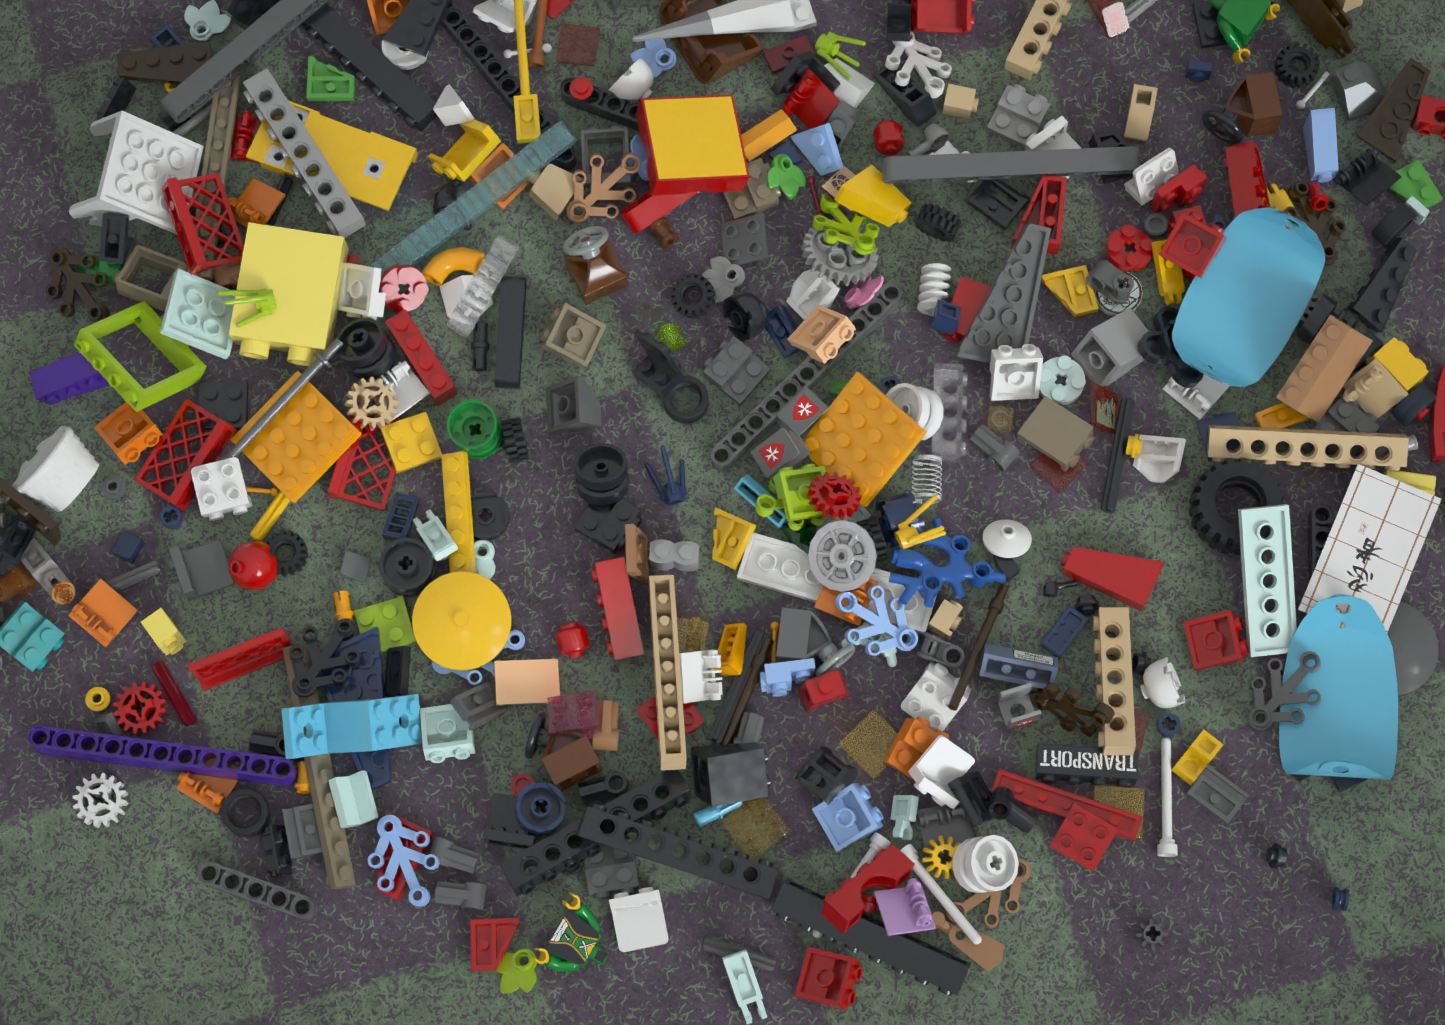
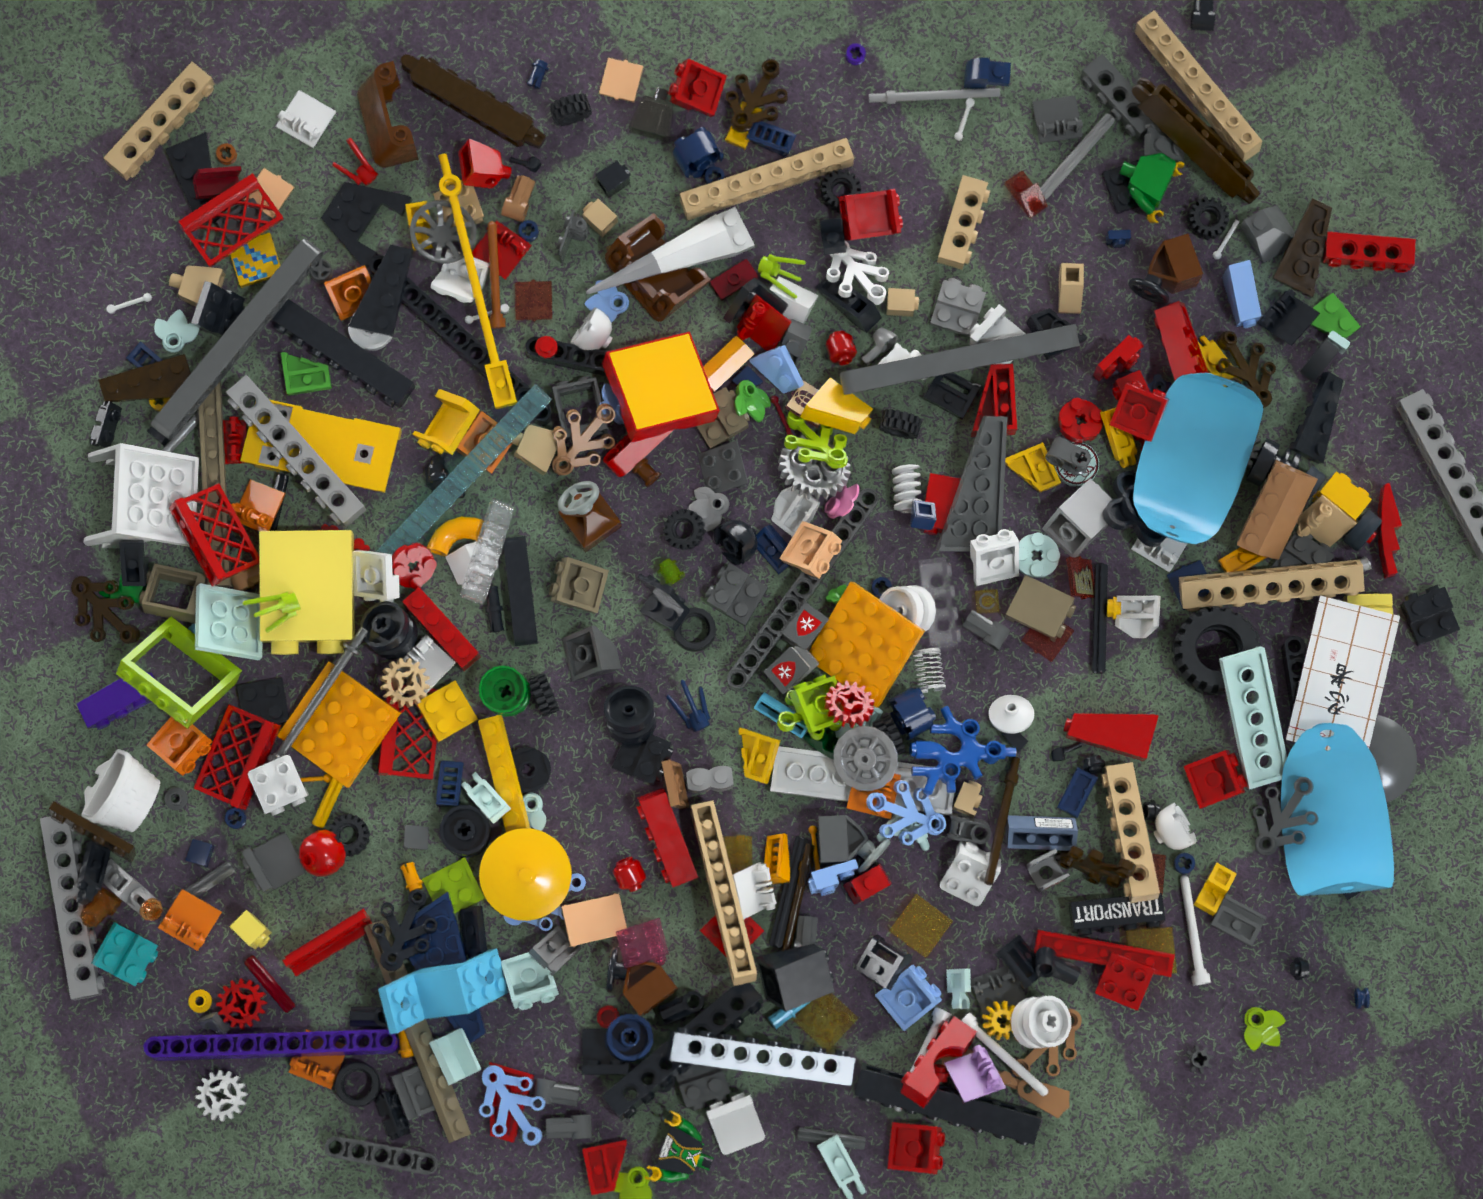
camera: 15 degrees left, 5 degrees up
(451, 108) = (426, 384): white slope -> none
(607, 734) = (677, 958): medium nougat piece -> none
(908, 536) = (922, 730): yellow plant -> none
(911, 744) = (962, 925): orange plate -> none
(938, 767) = (984, 939): white bracket -> none
(1152, 176) = (1092, 350): white bracket -> none
(1155, 225) = (1101, 393): dark grey tile -> none
(1227, 917) = (1265, 1030): none -> lime plate
(1318, 199) = (1247, 347): red pin -> none

